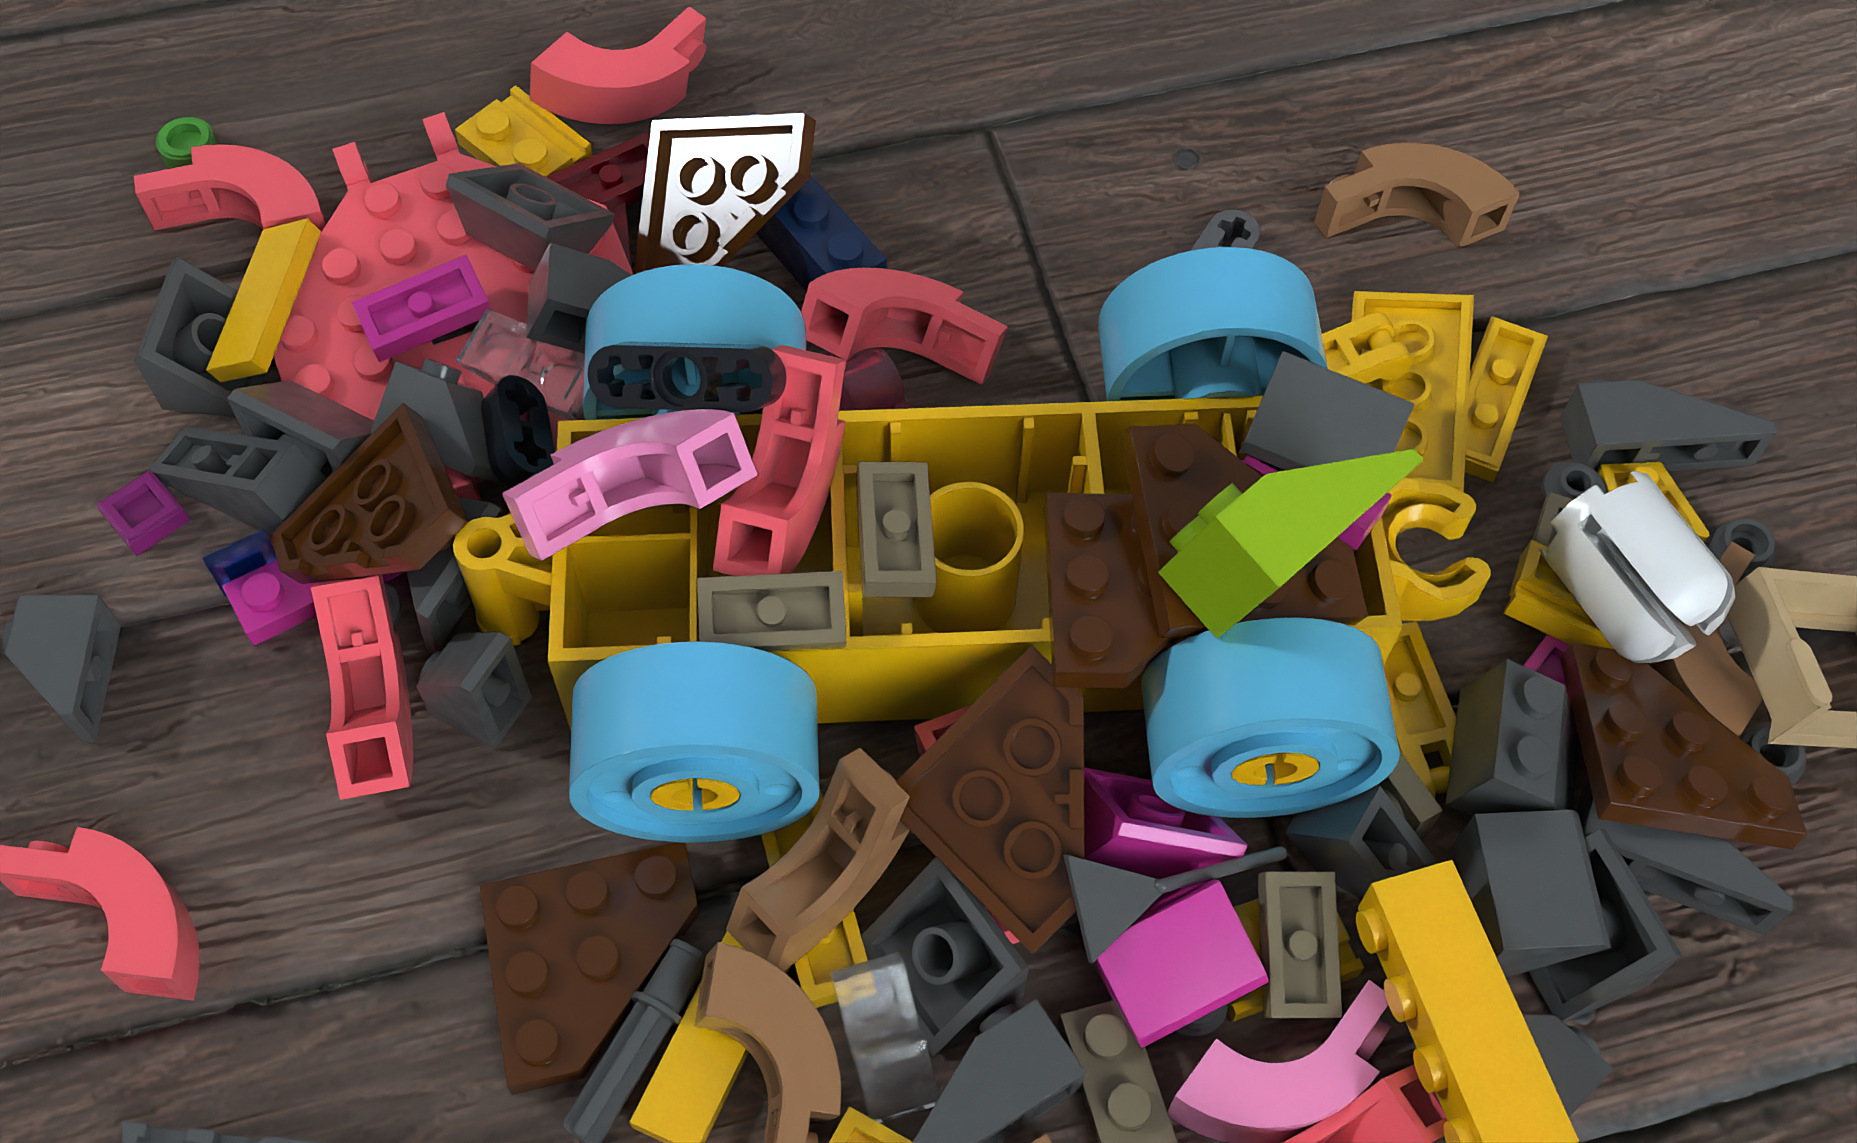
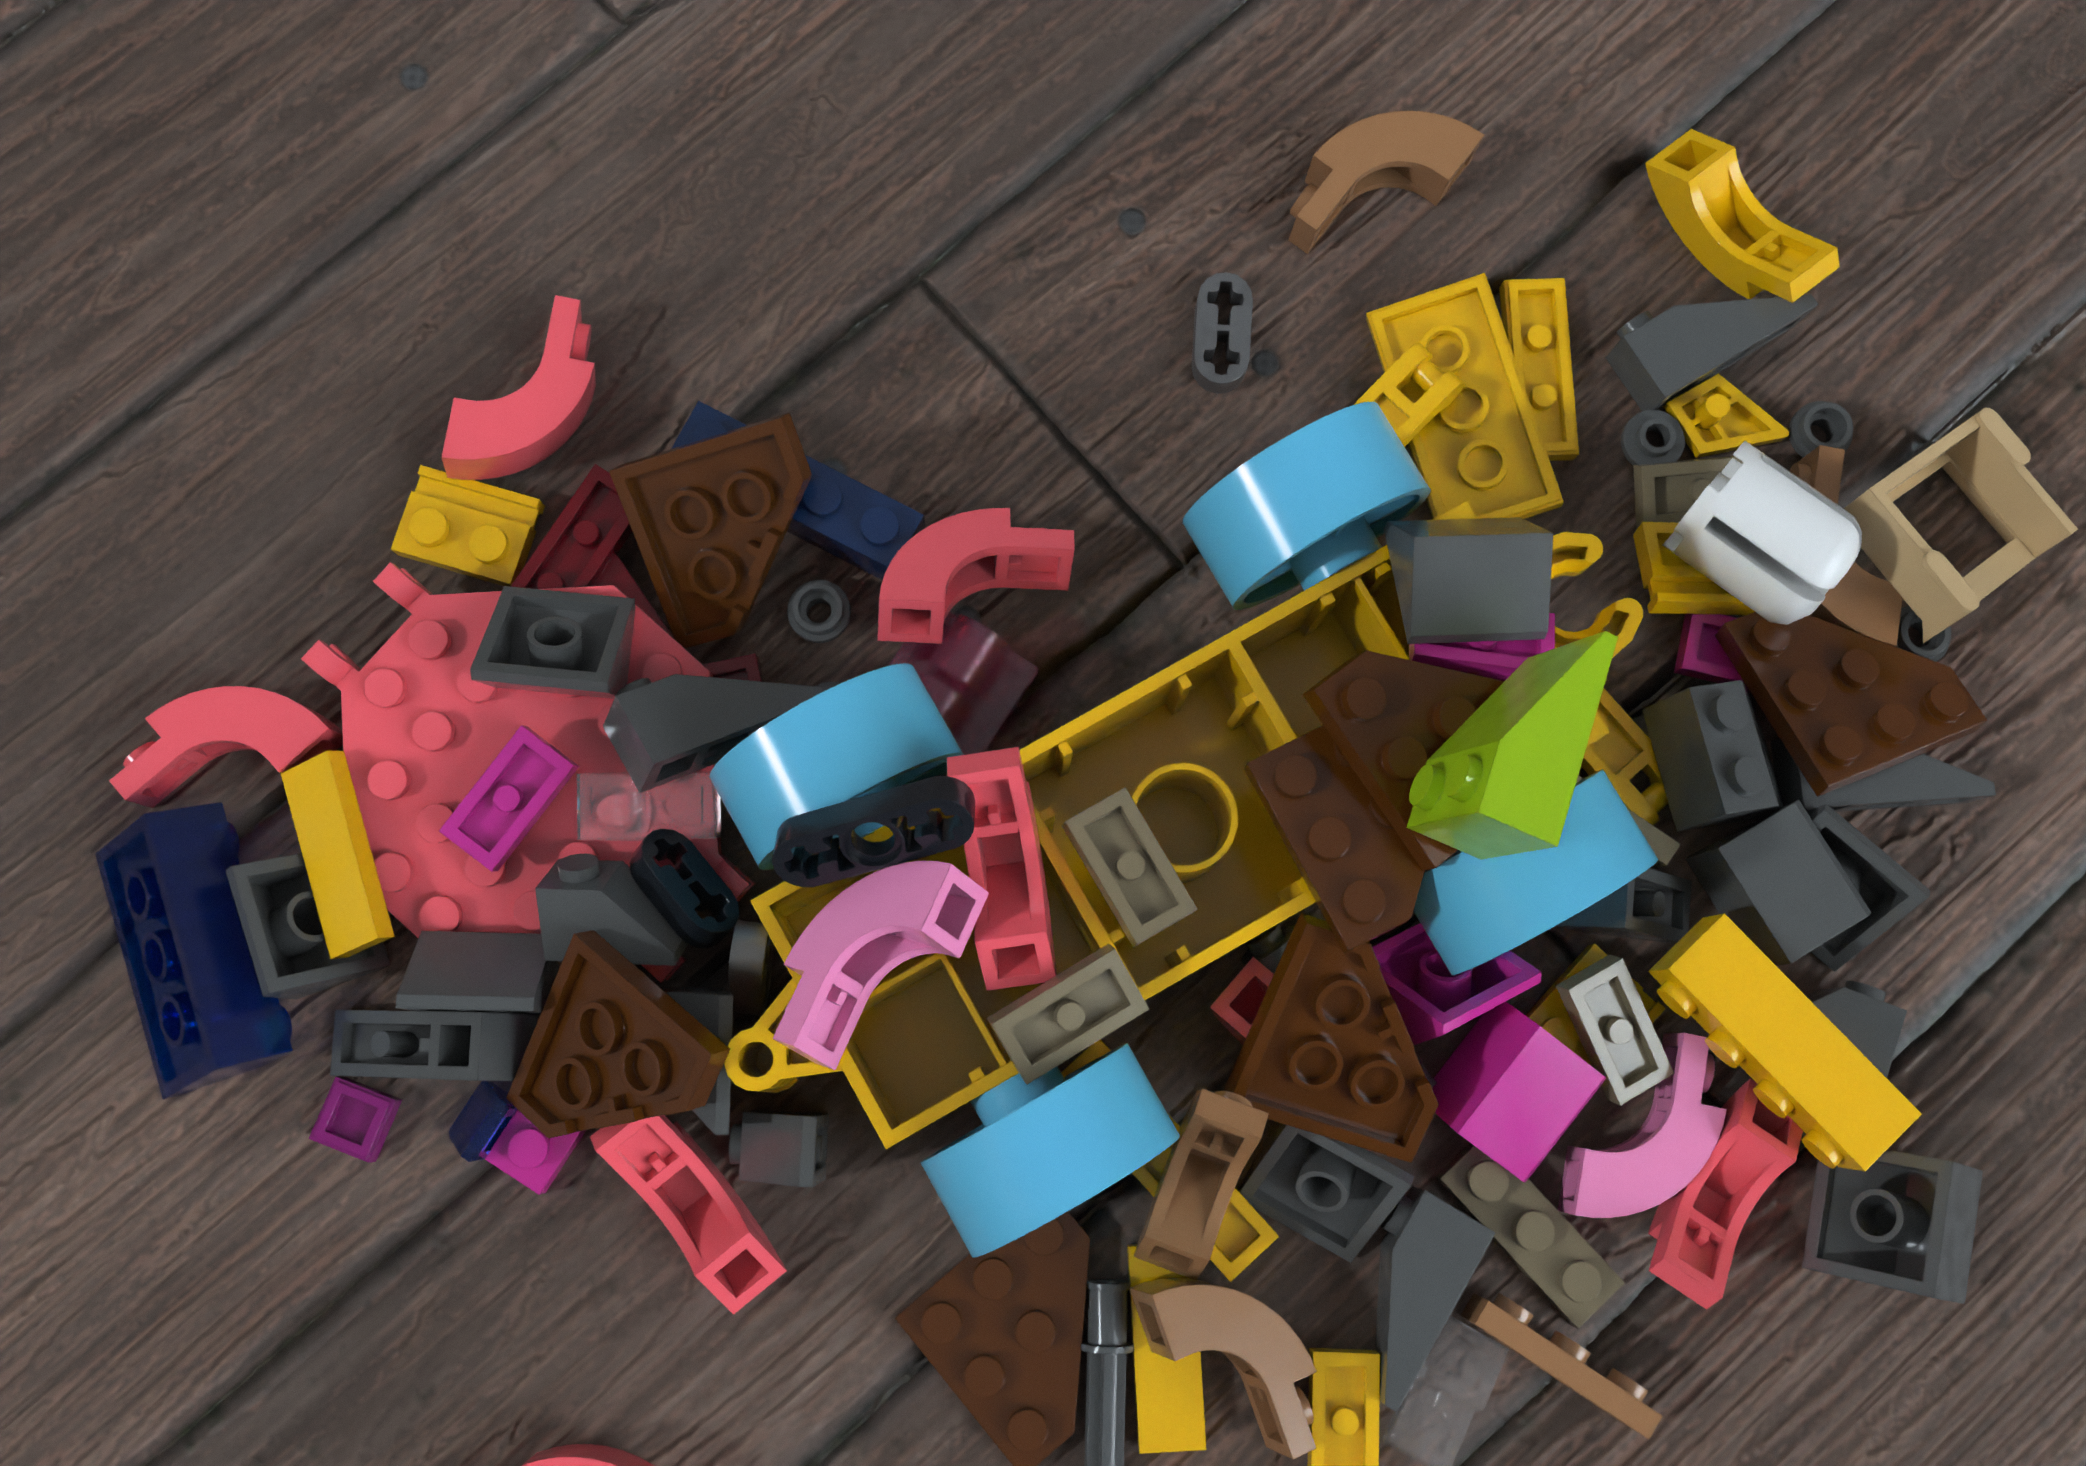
camera: 30 degrees left, 20 degrees up
(66, 654) = (388, 1308): dark grey slope -> none
(86, 372) = (189, 949): none -> clear blue slope
(178, 137) = (121, 696): bright green tile -> none
(885, 1038) = (1310, 1275): clear slope -> none
(1114, 898) = (1458, 1087): dark grey piece -> none
(1715, 345) = (1728, 227): none -> yellow arch

